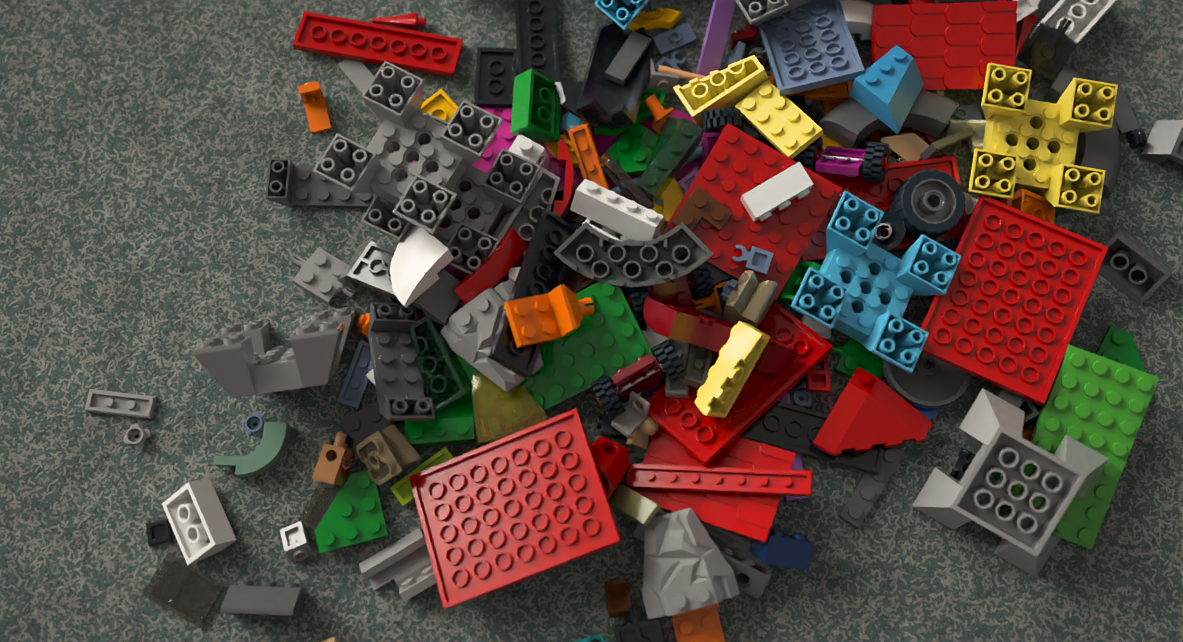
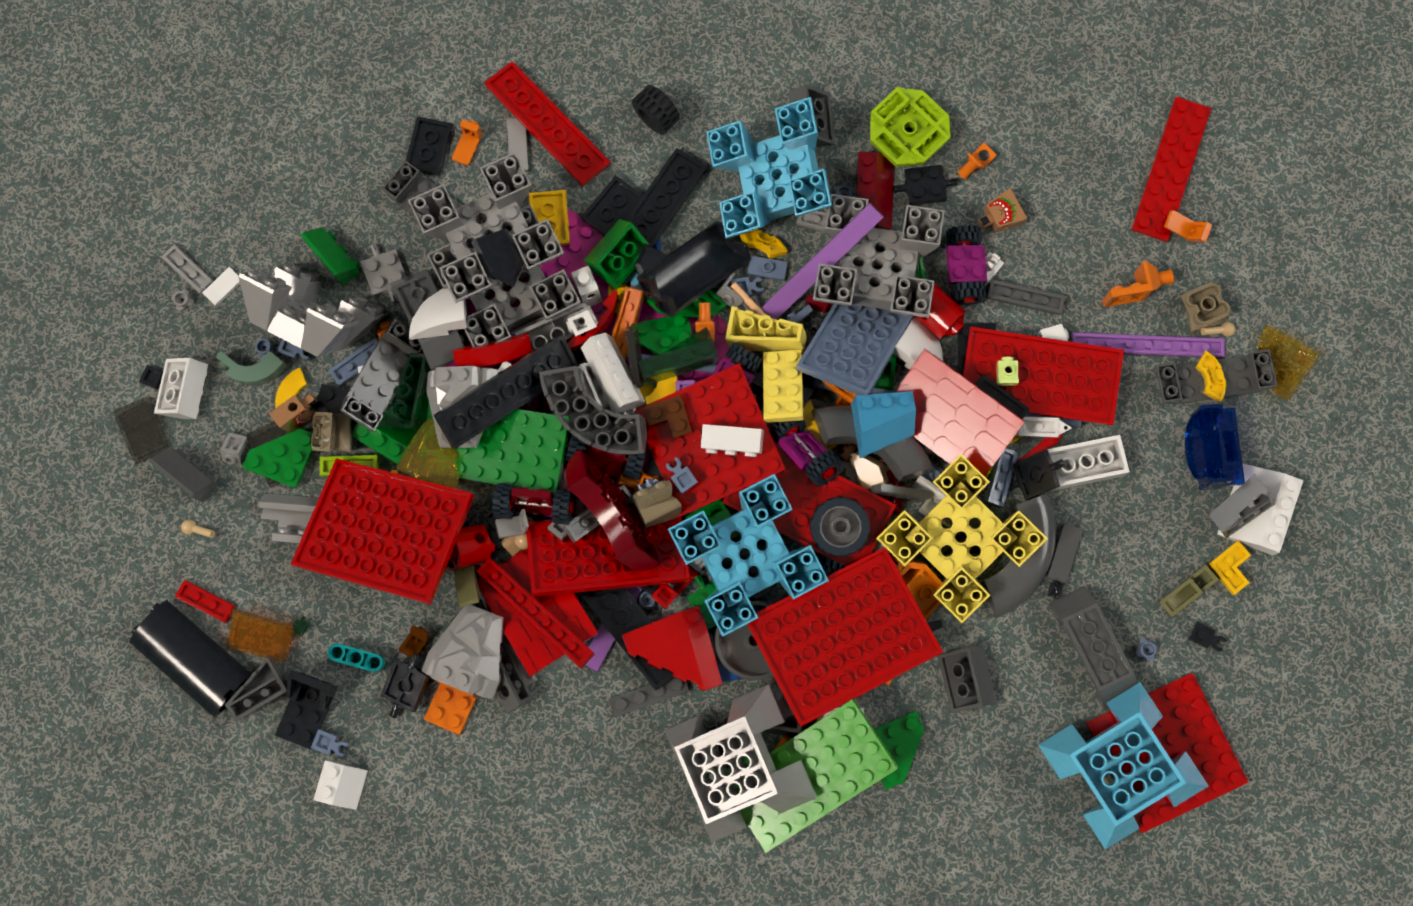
camera: 40 degrees right, 5 degrees up
(169, 396) = (222, 286): none -> white tile
(259, 292) = (331, 254): none -> green slope
(280, 133) = (429, 145): none -> black tile
(283, 404) = (290, 350): none -> sand blue plate
(310, 444) = (290, 386): none -> yellow tile
(409, 21) = (584, 120): red piece -> none
(441, 165) = (499, 256): none -> black tile
(546, 316) = (496, 414): orange plate -> none
(561, 180) = (579, 328): none -> white brick
(627, 58) = (715, 260): dark grey tile -> none
(731, 370) = (595, 543): light yellow wedge -> none
(784, 550) = (544, 693): dark blue slope -> none
(896, 228) = (786, 522): black dish -> none

